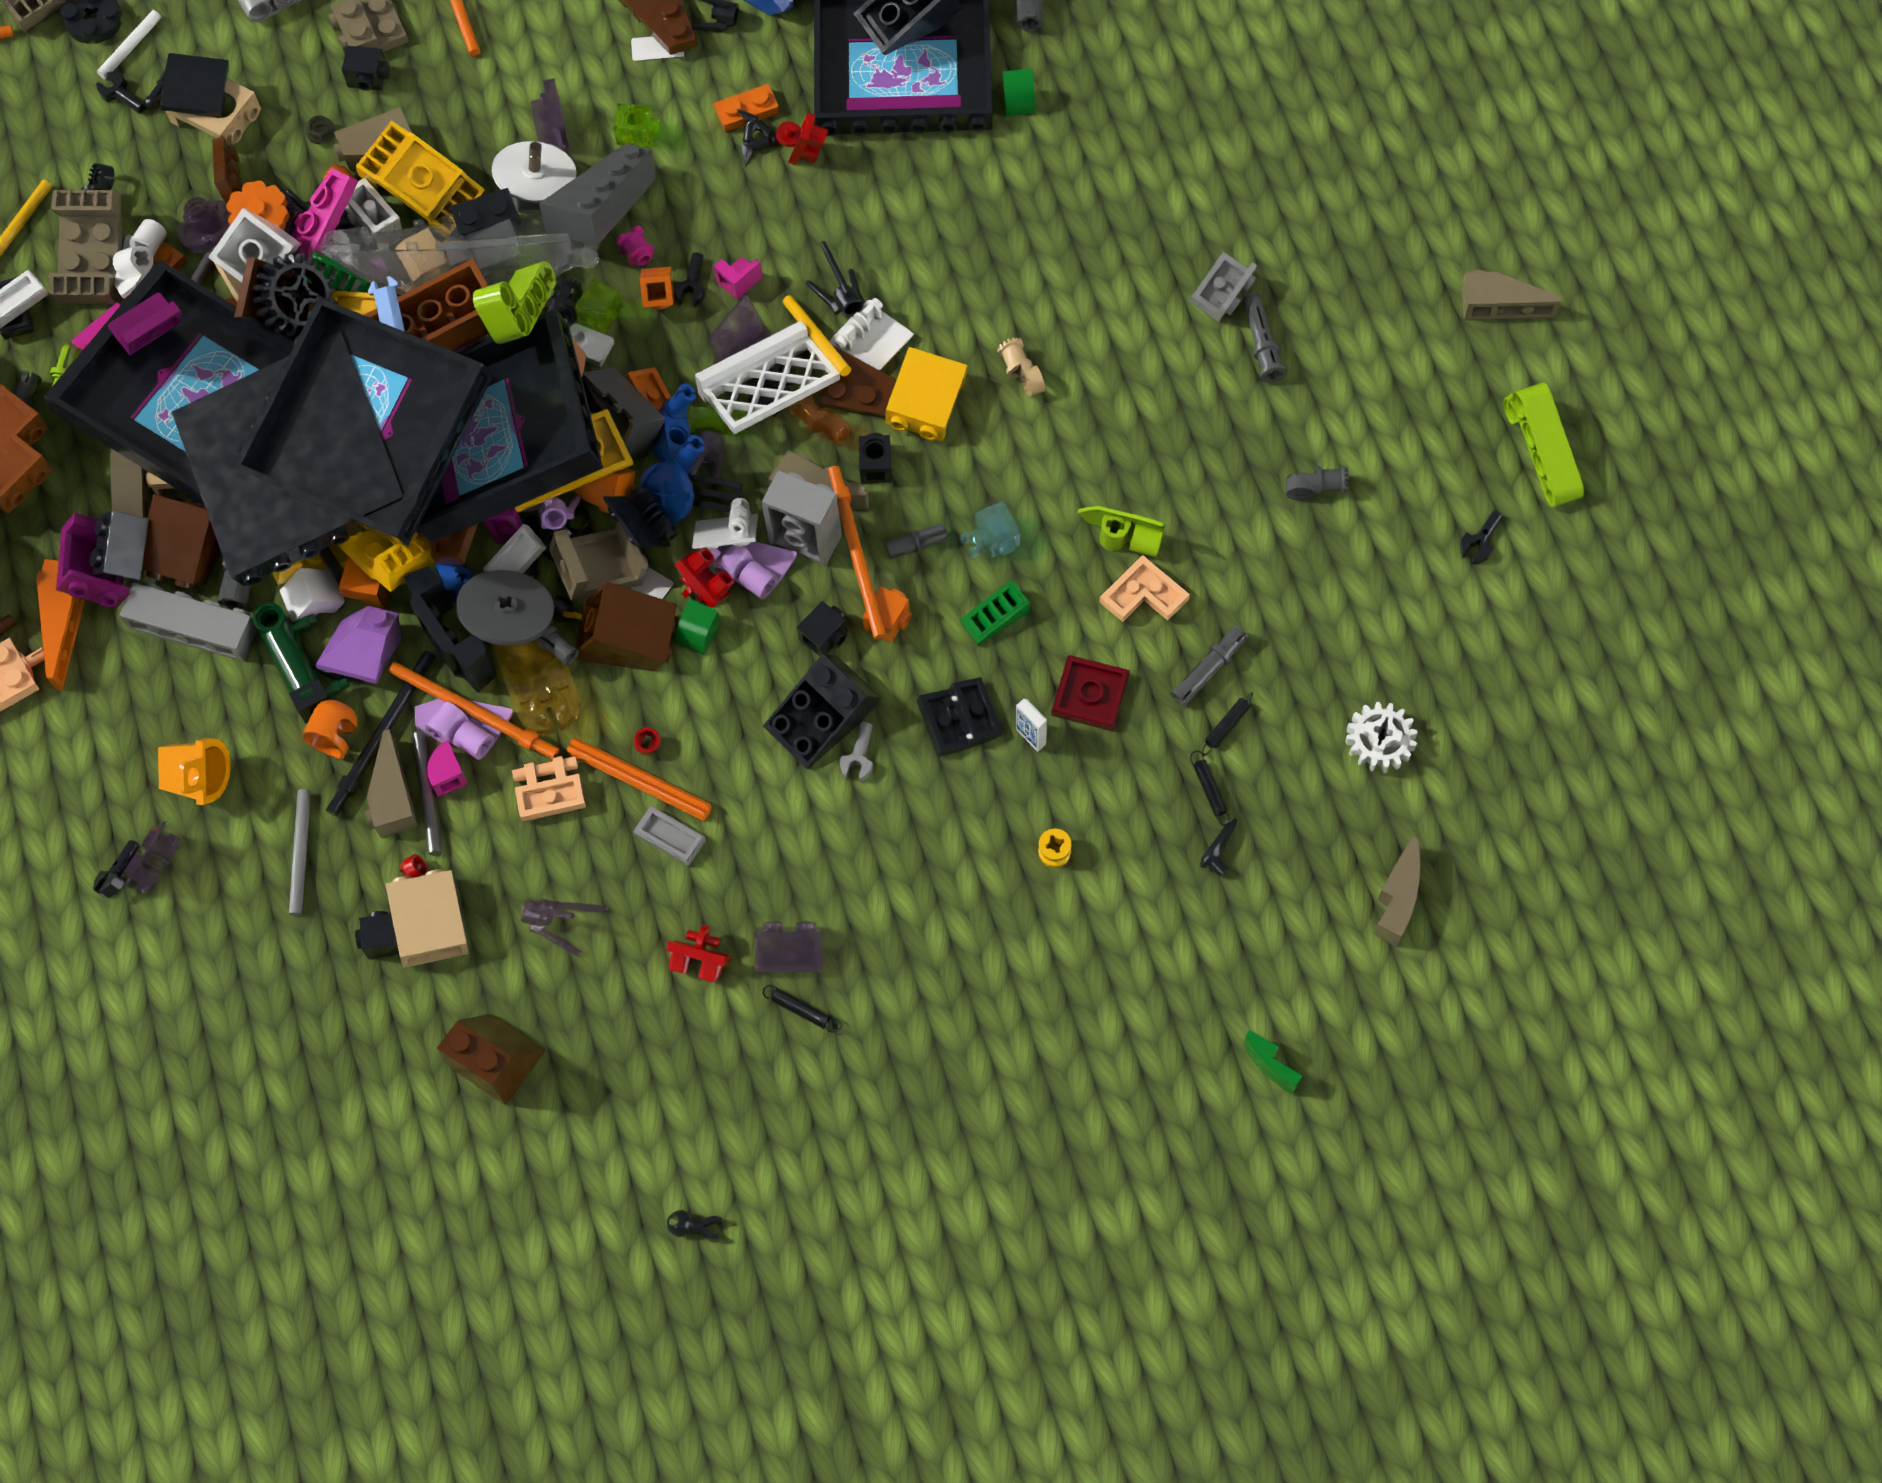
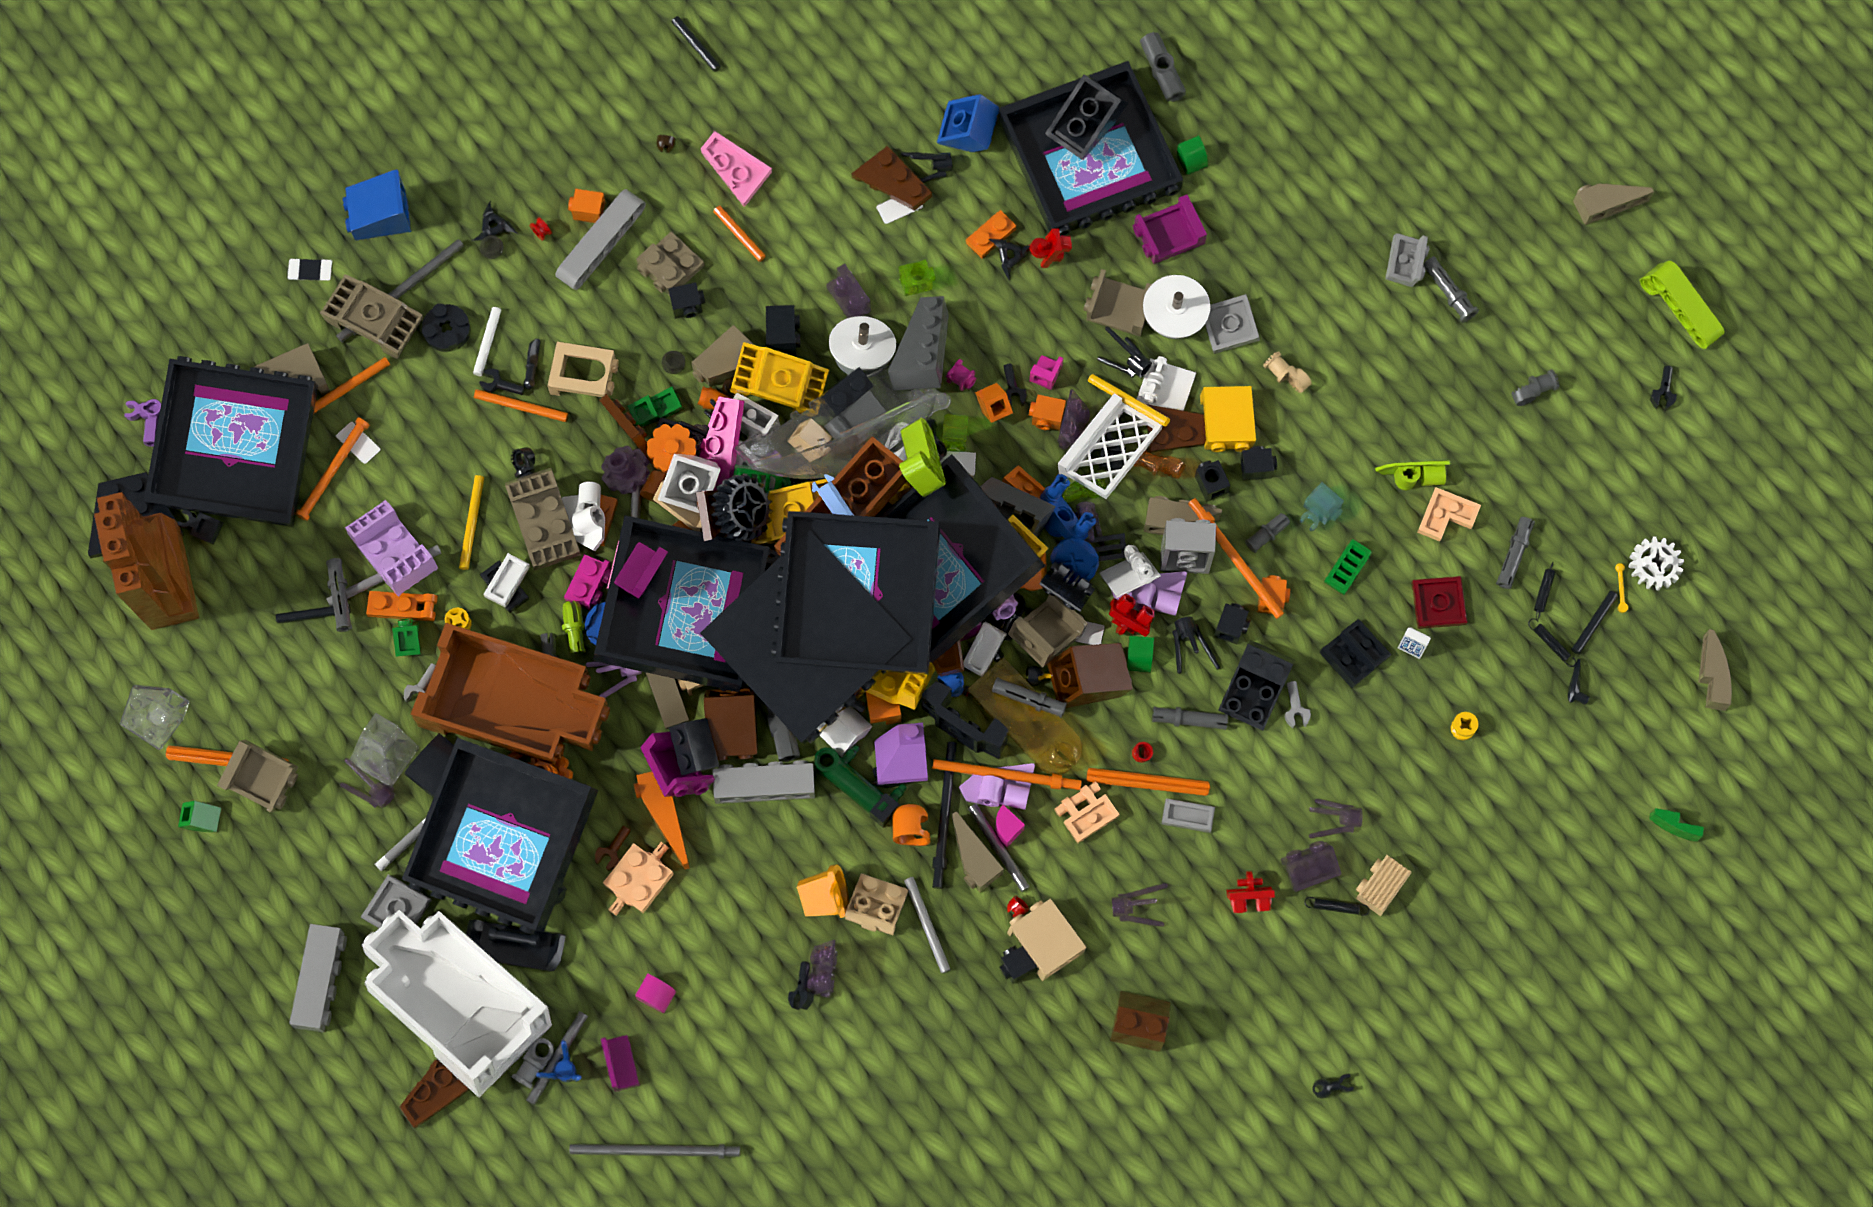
camera: 25 degrees left, 5 degrees up
(101, 449) = (631, 676): none -> lavender plant
(131, 123) = (521, 405): none -> orange bar
(194, 85) = (567, 361): black slope -> none
(248, 805) = (876, 904): none -> tan plate
(285, 172) = (650, 409): none -> green slope
(454, 130) = (781, 329): none -> black brick
(484, 610) = (1021, 689): dark grey piece -> none
(710, 314) = (1047, 412): none -> orange brick
(710, 716) = (1191, 718): none -> dark grey pin
(764, 621) = (1188, 631): none -> black plant
(858, 229) = (1116, 305): none -> dark tan panel
(863, 903) = (1348, 815): none -> plant
(866, 1002) = (1383, 885): none -> tan brick
(918, 249) = (1176, 306): none -> white piece
(938, 458) = (1257, 463): none -> black brick
(954, 168) = (1170, 231): none -> magenta panel
(978, 292) = (1231, 324): none -> light grey plate
(1274, 782) = (1594, 622): none -> black bar
(1319, 776) = (1622, 607): none -> yellow hinge

